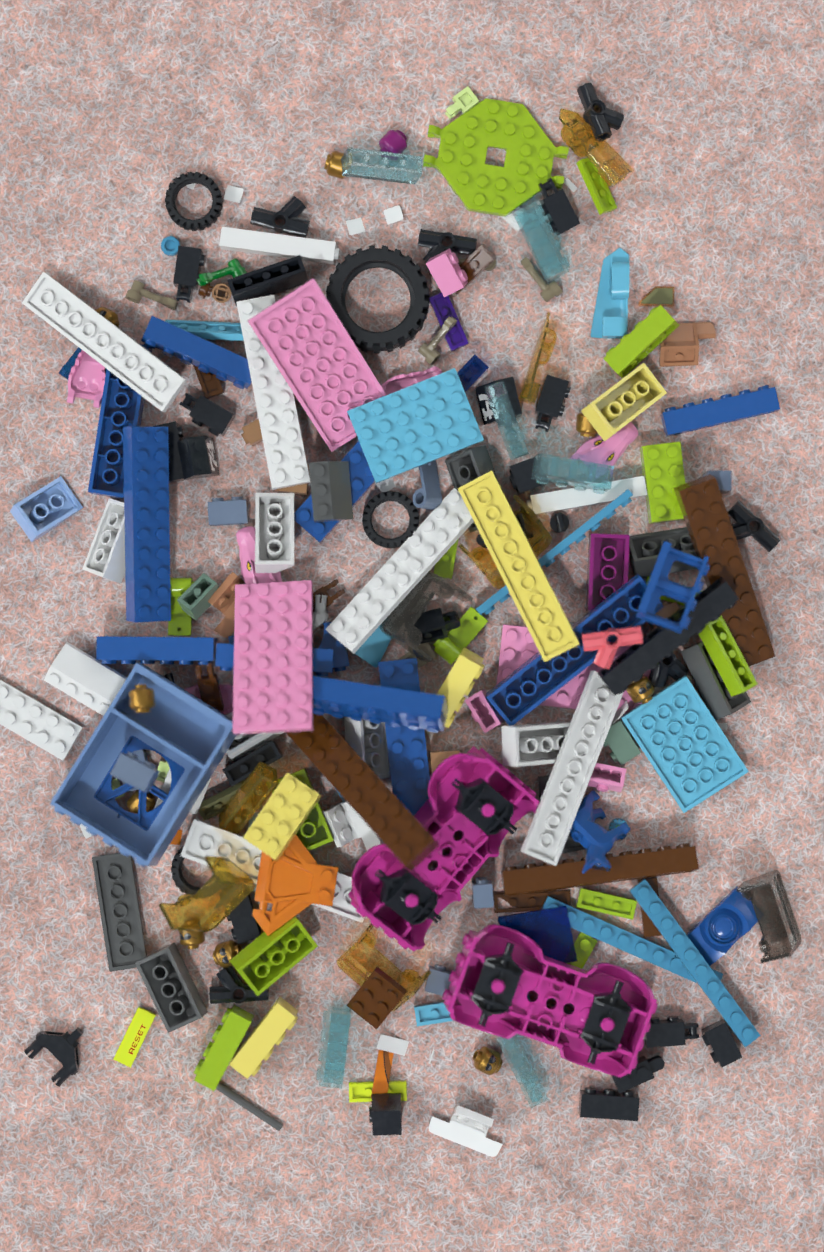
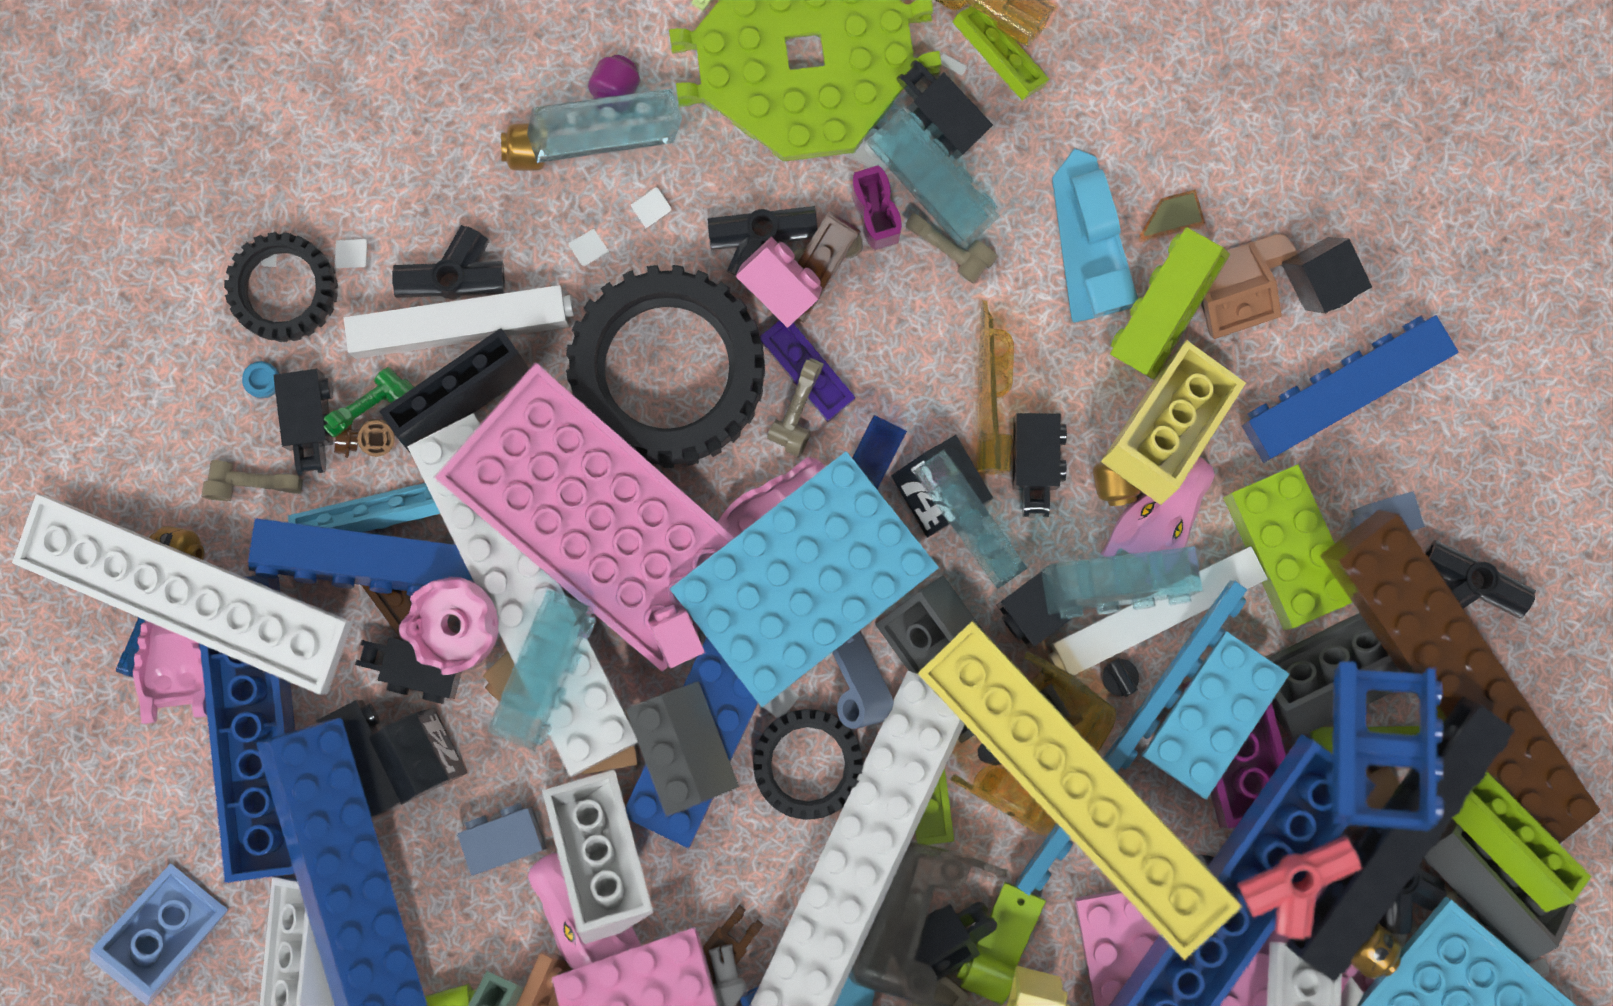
camera: 15 degrees left, 5 degrees down
(222, 394) = (429, 631): none -> bright pink plate
(273, 432) = (541, 671): none -> clear light blue brick
(343, 435) = (675, 635): none -> bright pink brick
(507, 245) = (872, 200): none -> magenta brick
(598, 552) = (1215, 715): none -> medium azure plate
(726, 350) = (1327, 275): none -> black head

